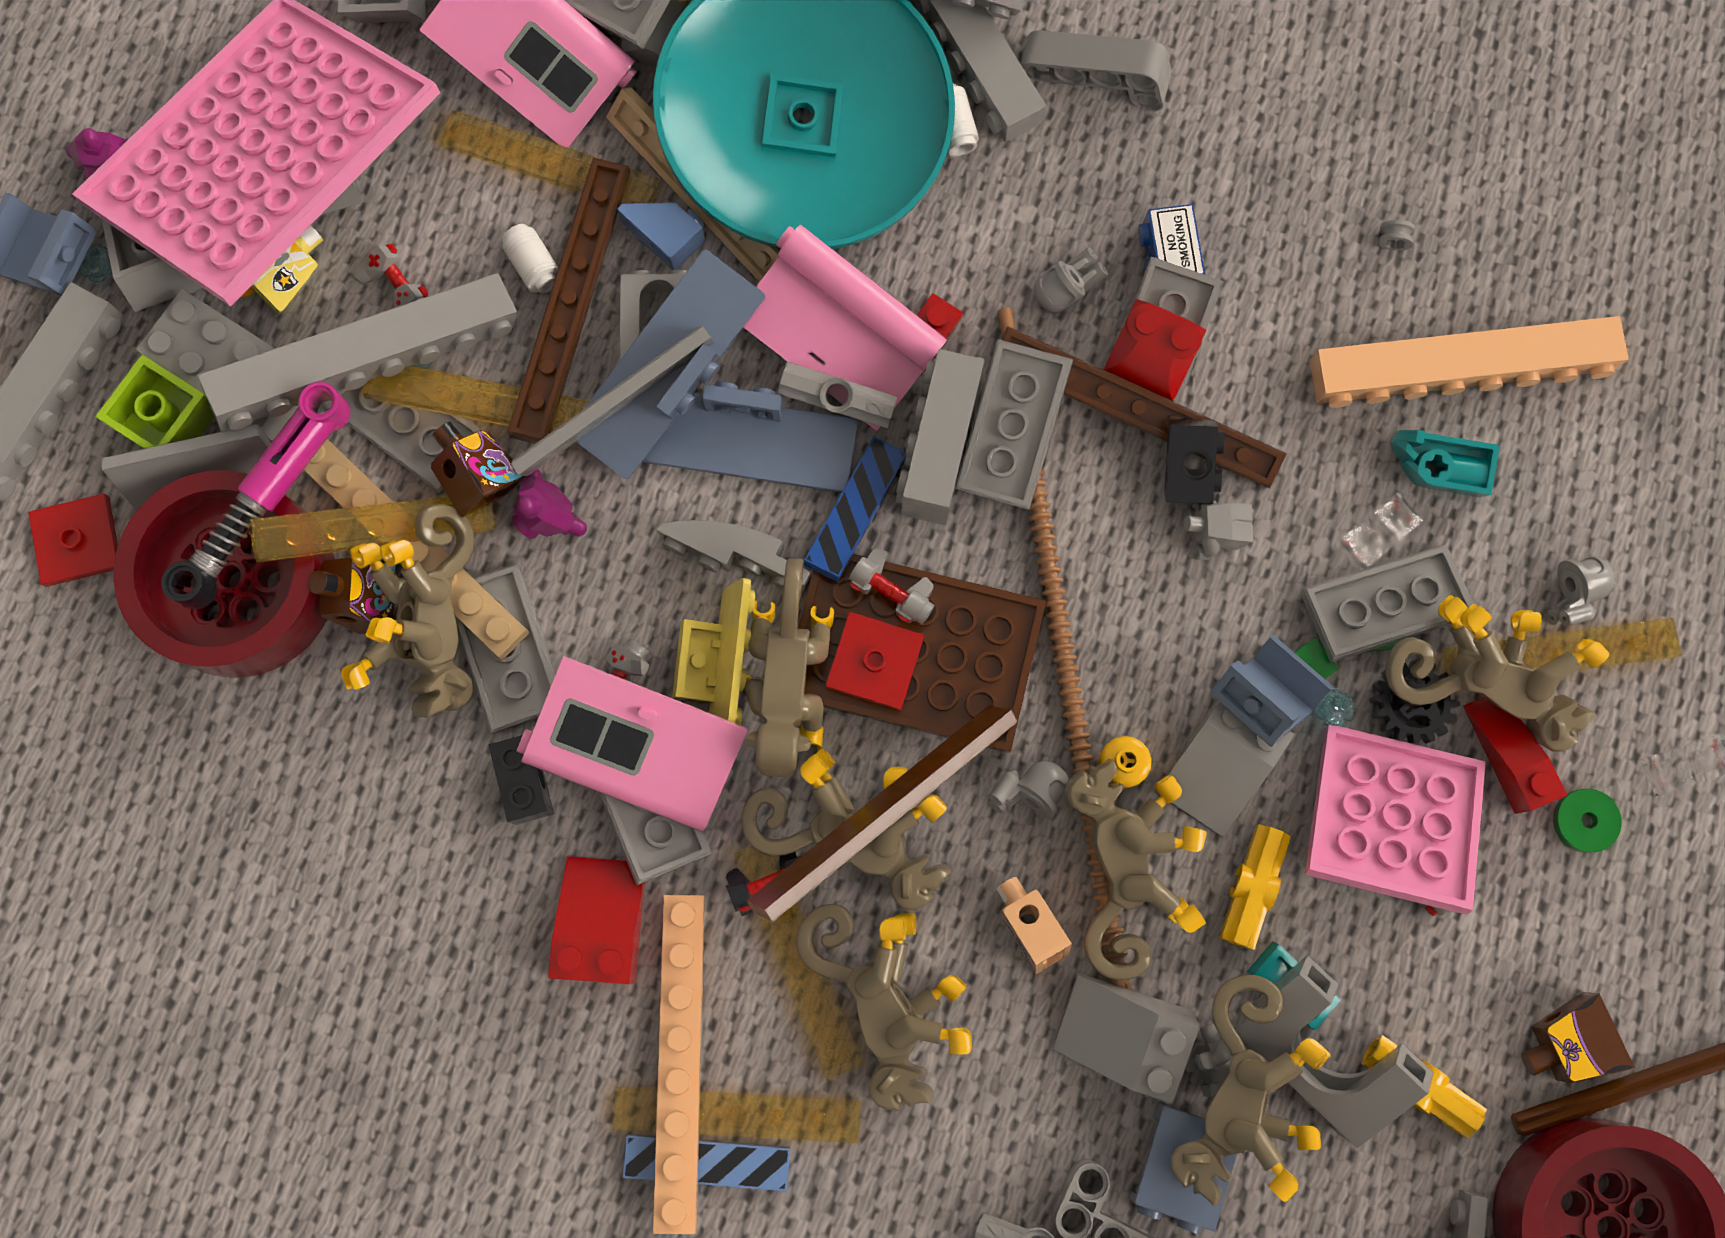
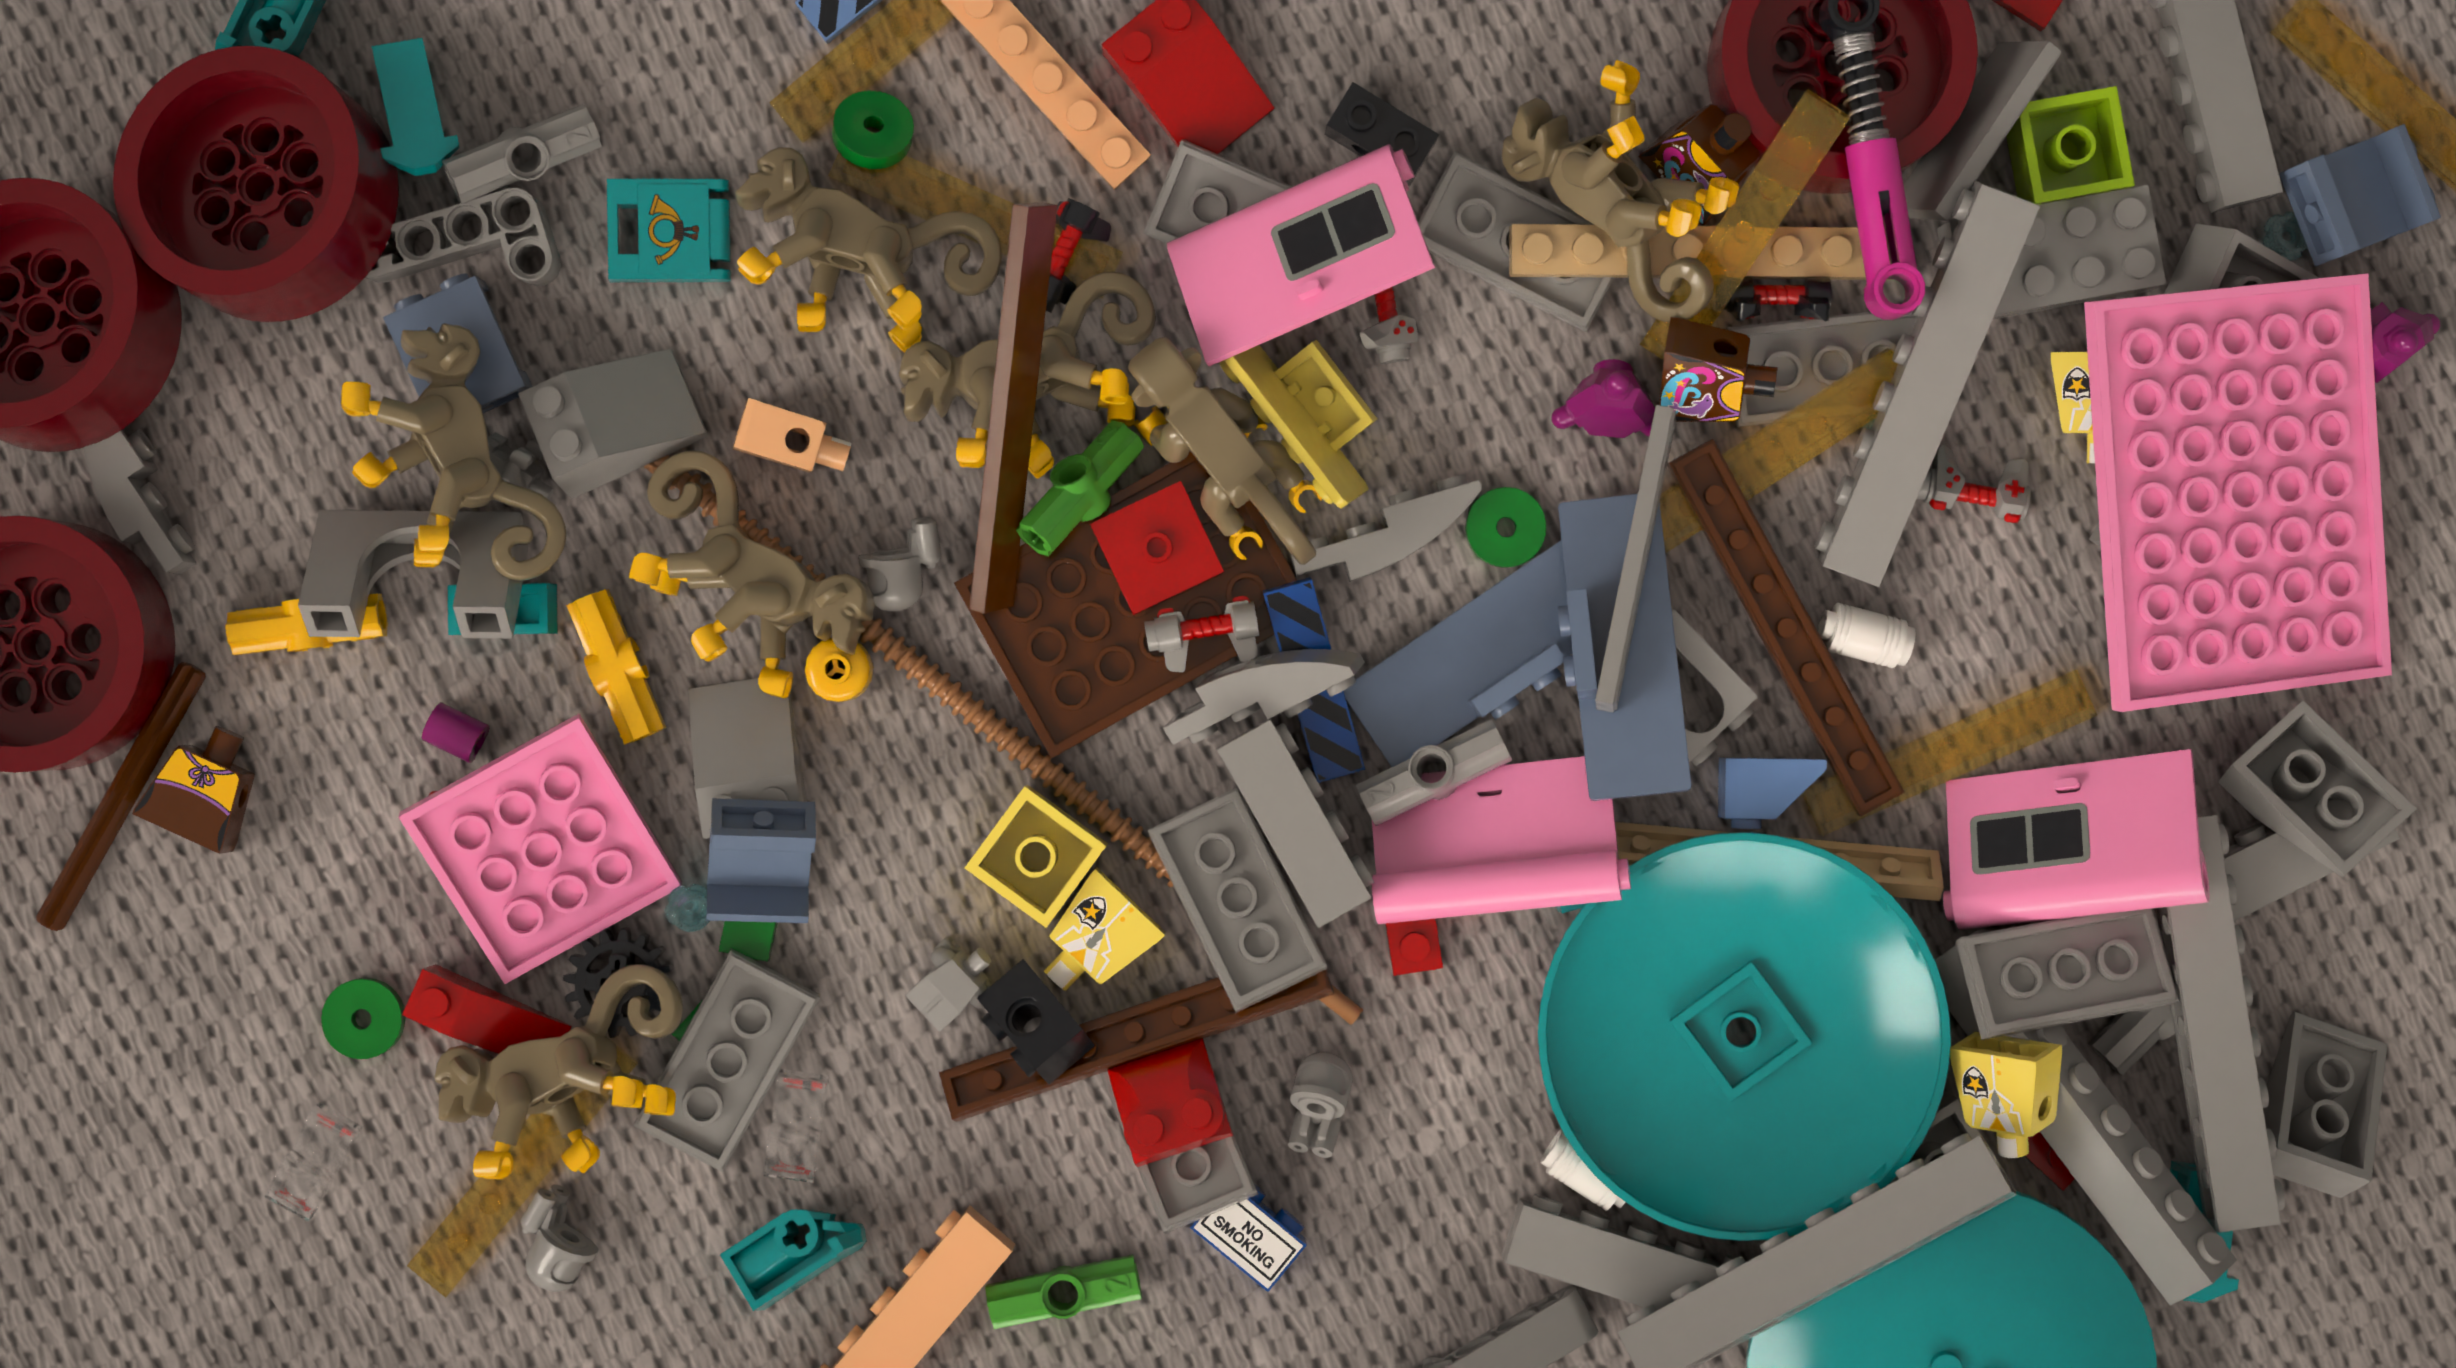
camera: 135 degrees right, 10 degrees up
(379, 464) = (1809, 300): none -> black piece
(664, 480) = (1528, 522): none -> green piece
(827, 1060) = (869, 148): none -> green piece
(877, 521) = (1274, 680): none -> light grey slope
(887, 735) = (1080, 488): none -> bright green piece
(984, 1117) = (676, 230): none -> teal container
(1105, 552) = (1036, 855): none -> light yellow brick
(1107, 479) = (1100, 933): none -> light yellow torso
(1328, 319) = (1030, 1297): none -> bright green piece
(1387, 937) = (455, 732): none -> magenta piece

